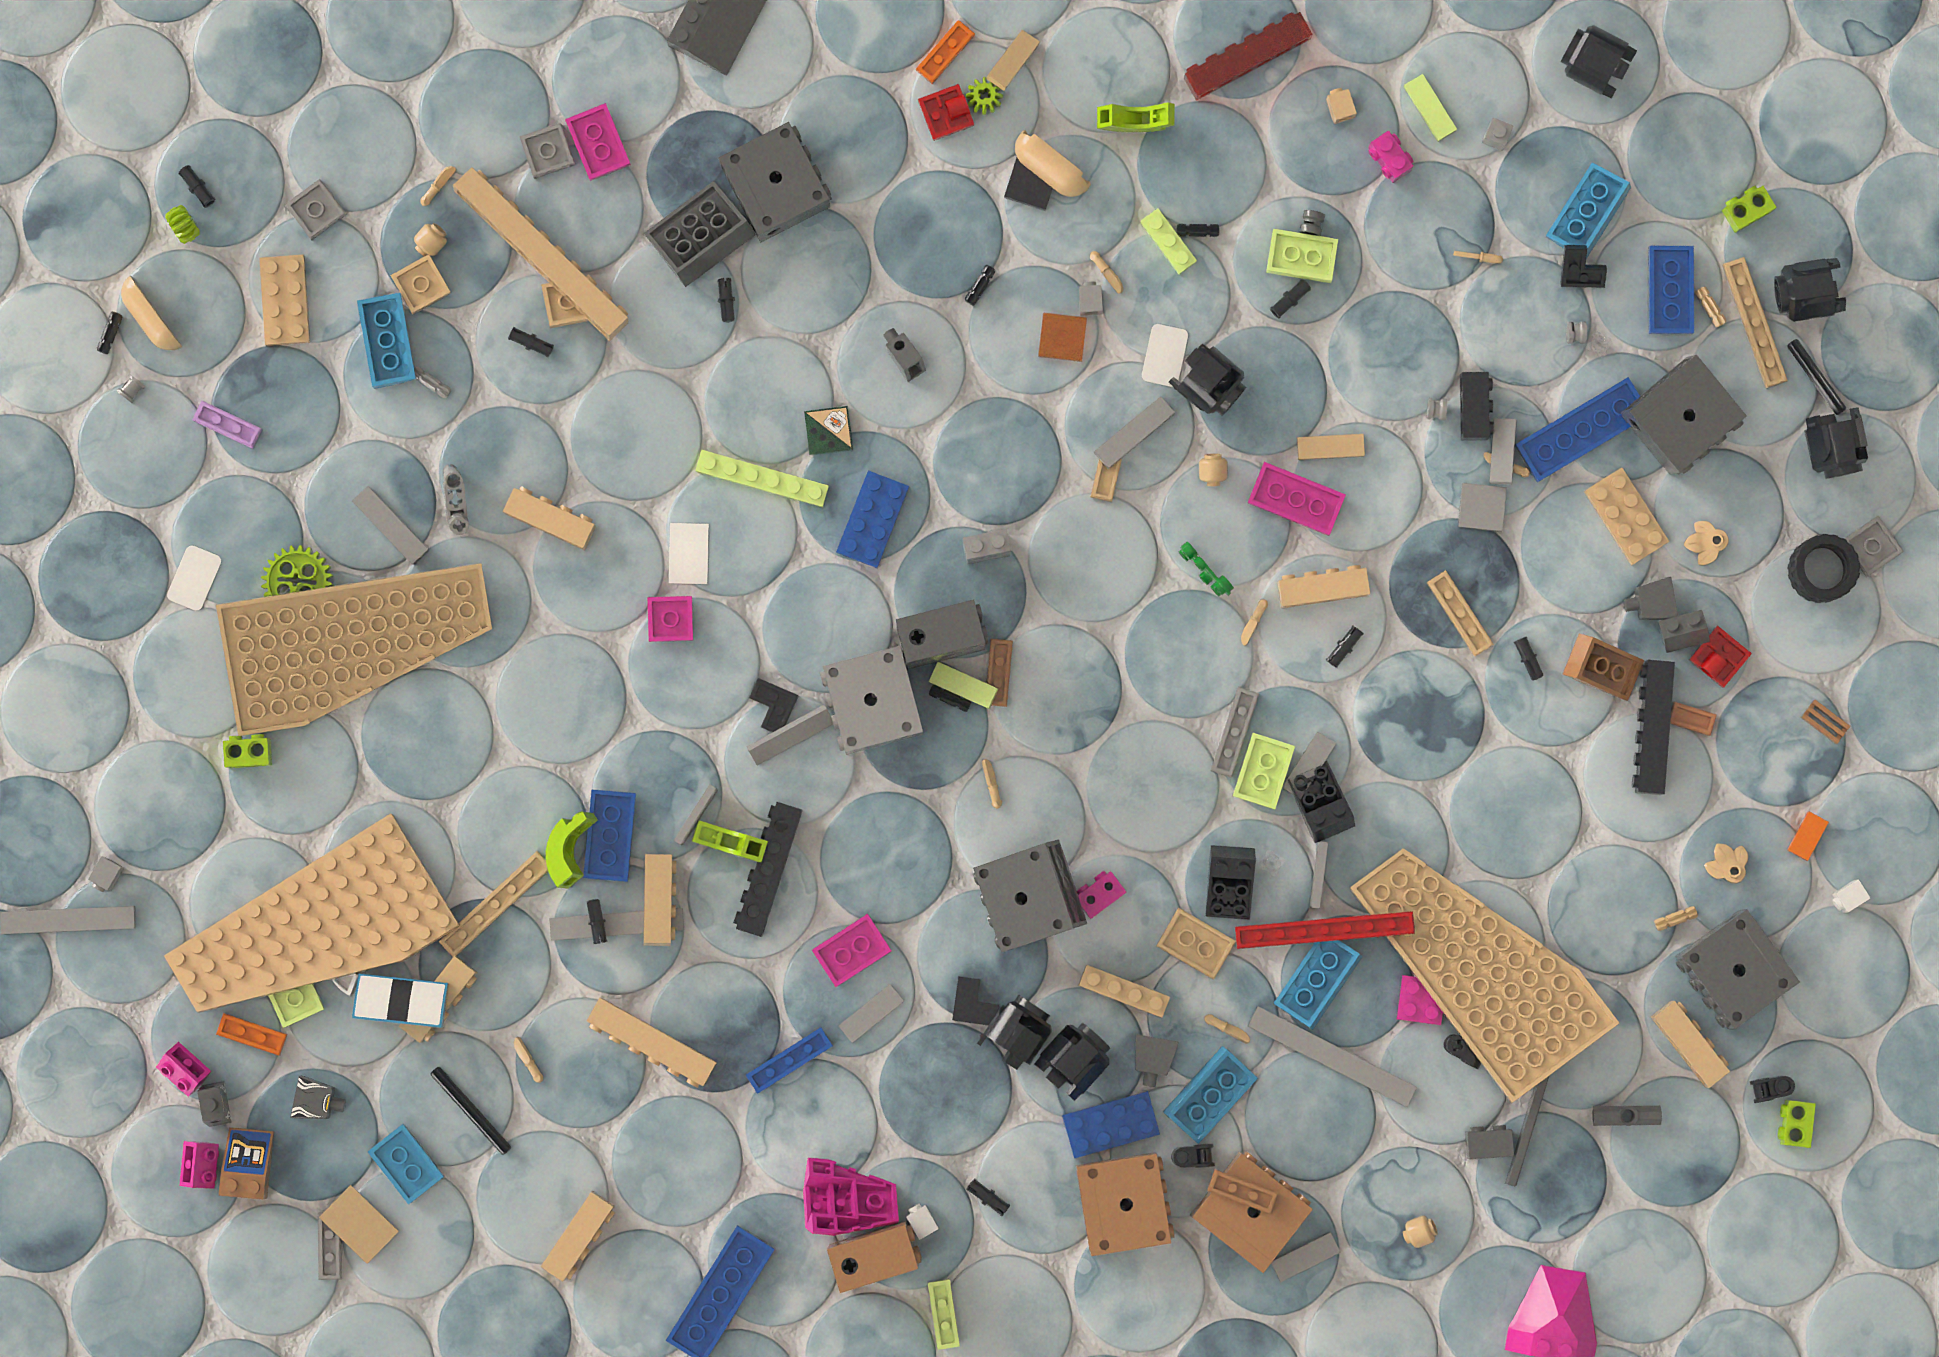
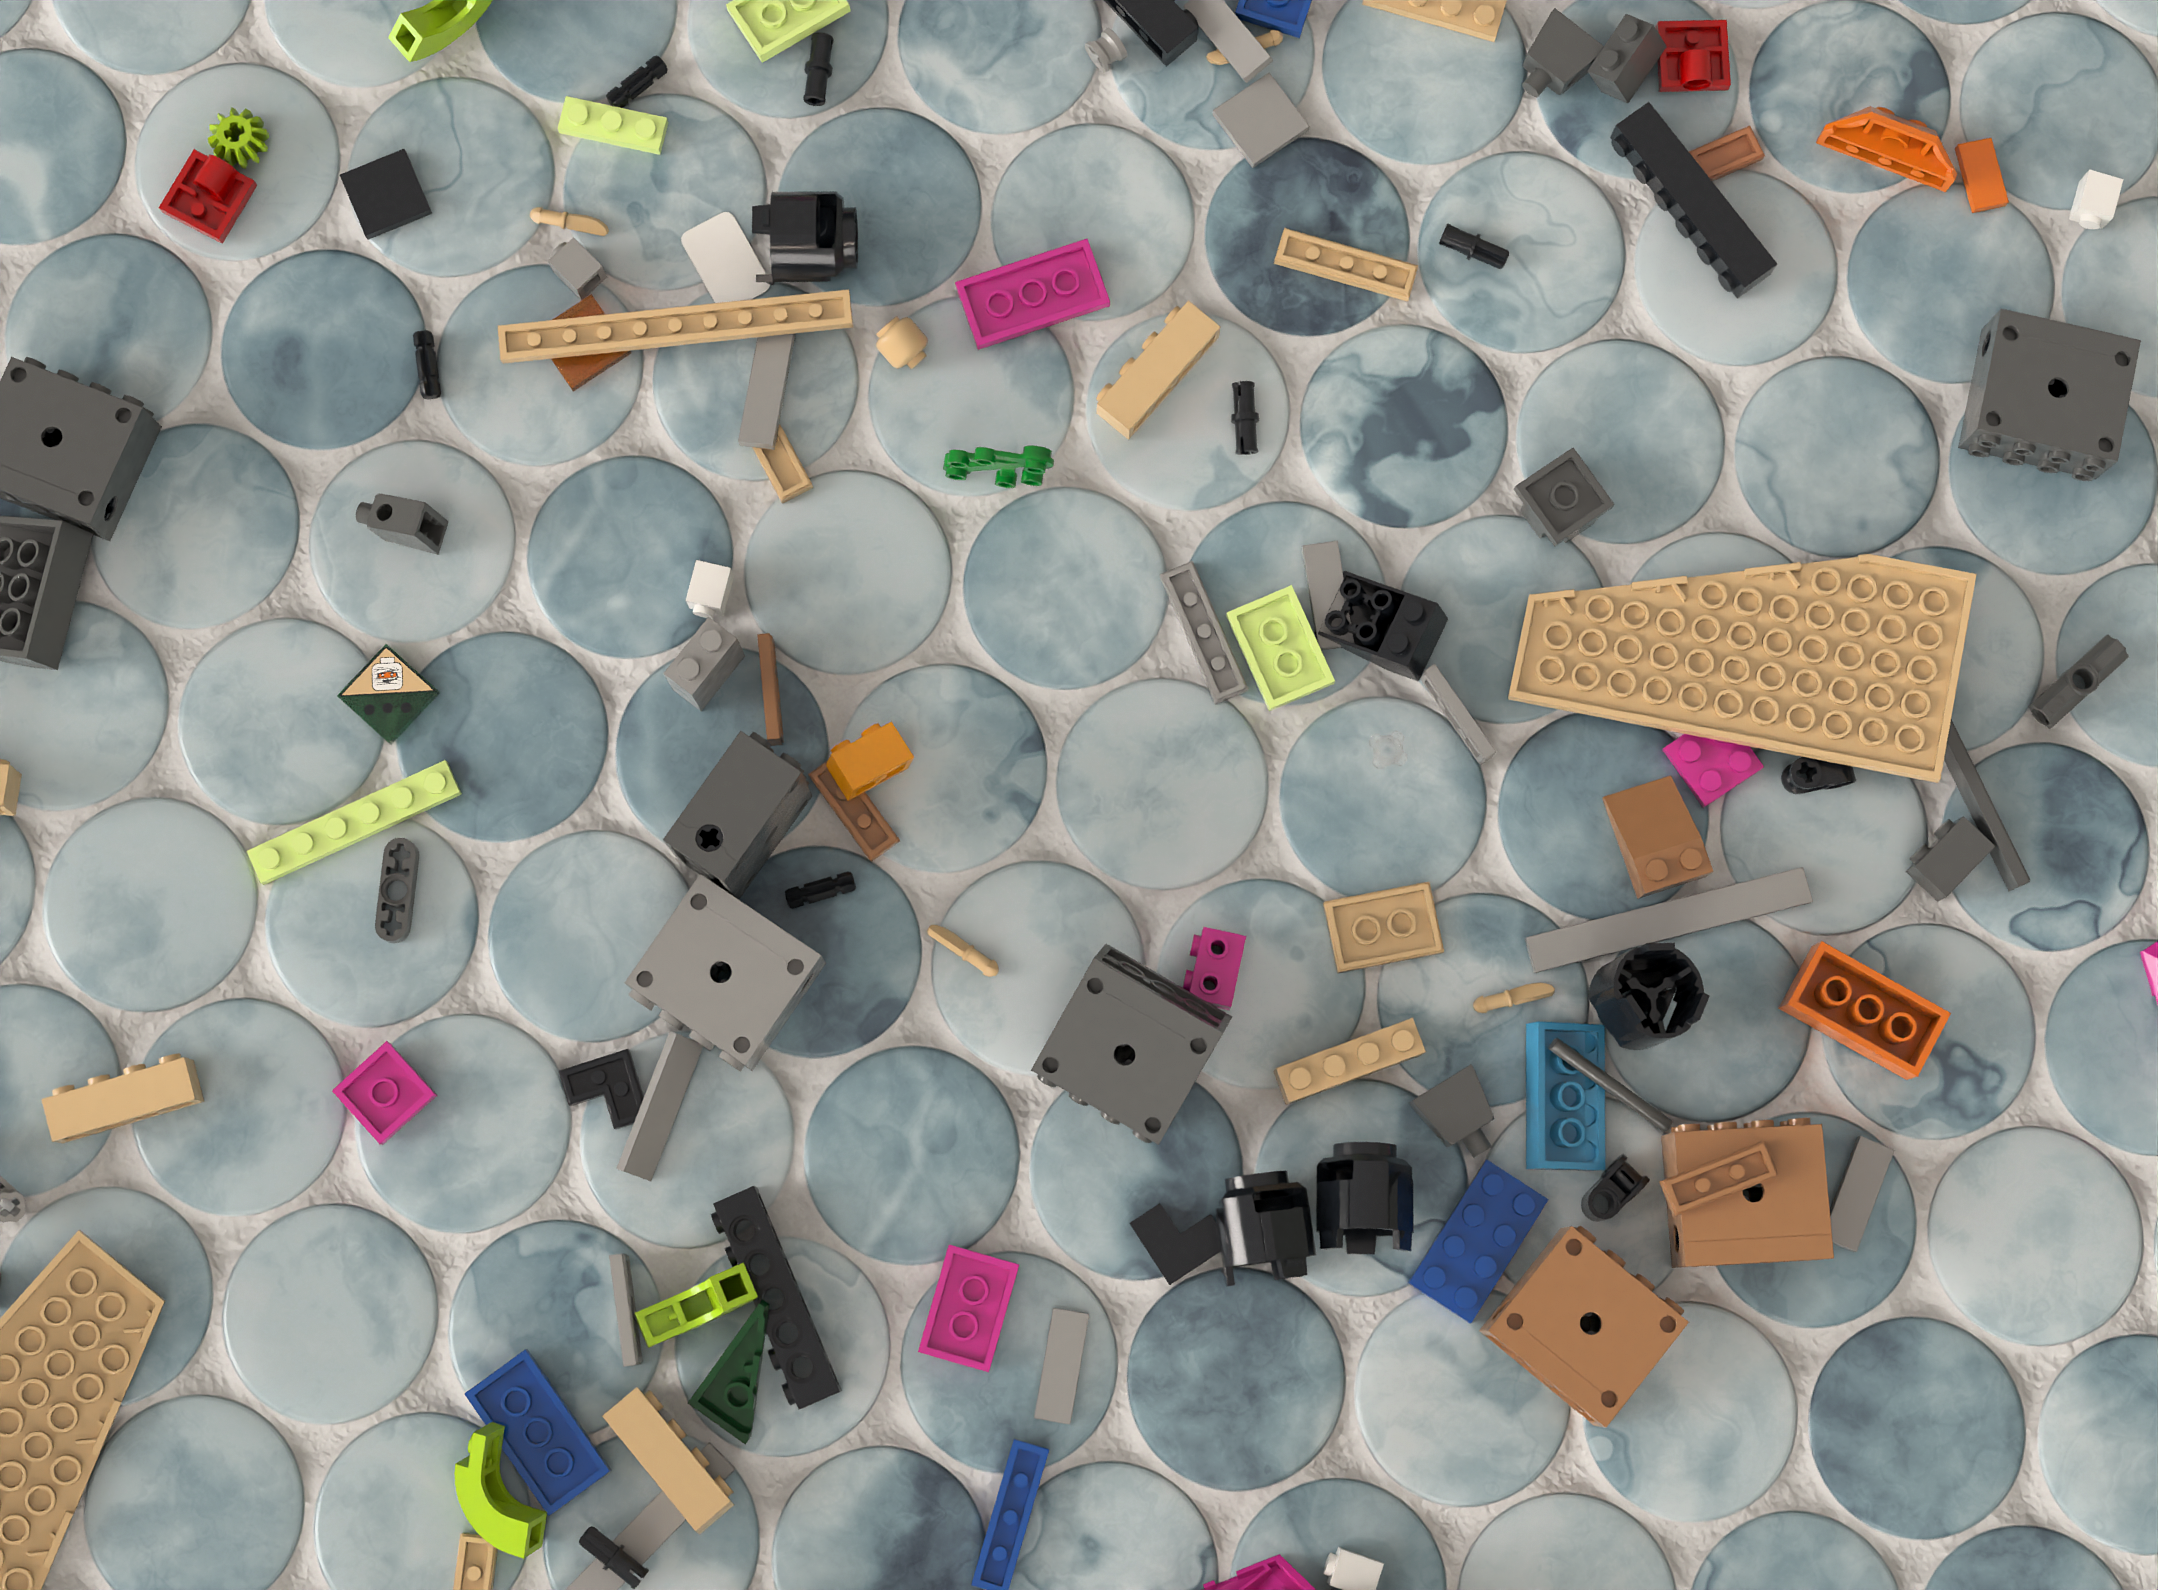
camera: 40 degrees left, 5 degrees down
(688, 553) = (340, 993): white sticker -> none
(714, 891) = (732, 1385): none -> dark green wing
(726, 300) = (123, 643): black axle -> none
(762, 511) = (408, 864): none -> dark grey beam
(872, 519) = (536, 755): blue plate -> none
(945, 52) = (147, 128): orange tile -> none
(963, 685) = (823, 859): yellowish green tile -> none
(988, 1197) = (1408, 1467): black pin -> none
(1007, 583) = (770, 689): none -> medium nougat tile
(1013, 60) = (237, 67): tan tile -> none
(1020, 510) = (709, 589): none -> white brick
(1024, 657) = (869, 759): none -> light orange brick
(1050, 165) = (390, 151): tan brick -> none
(1112, 370) = (675, 326): none -> tan plate
(1230, 882) = (1359, 815): black slope -> none
(1235, 1108) = (1610, 1084): none -> dark grey bar
(1253, 622) = (1110, 485): tan piece -> none
(1296, 1076) = (1637, 991): none -> black piece
(1317, 981) = (1569, 842): dark azure slope -> none
(1325, 930) = (1525, 773): red tile -> none
(1330, 446) = (1019, 200): tan tile -> none
(1361, 1013) = (1657, 837): none -> medium nougat slope
(1383, 1177) = (1864, 1010): none -> orange brick
(1420, 1231) = (1966, 1038): tan head -> none
(1459, 816) = (1562, 498): none -> dark grey panel
(1603, 666) = (1568, 181): medium nougat slope -> none
(1676, 918) = (1920, 401): tan axle -> none
(1690, 1044) = (2073, 531): tan brick -> none
(1725, 861) = (1916, 282): tan plate -> none
(1777, 783) = (1892, 144): none -> orange wedge
(1844, 725) = (1909, 25): medium nougat tile -> none

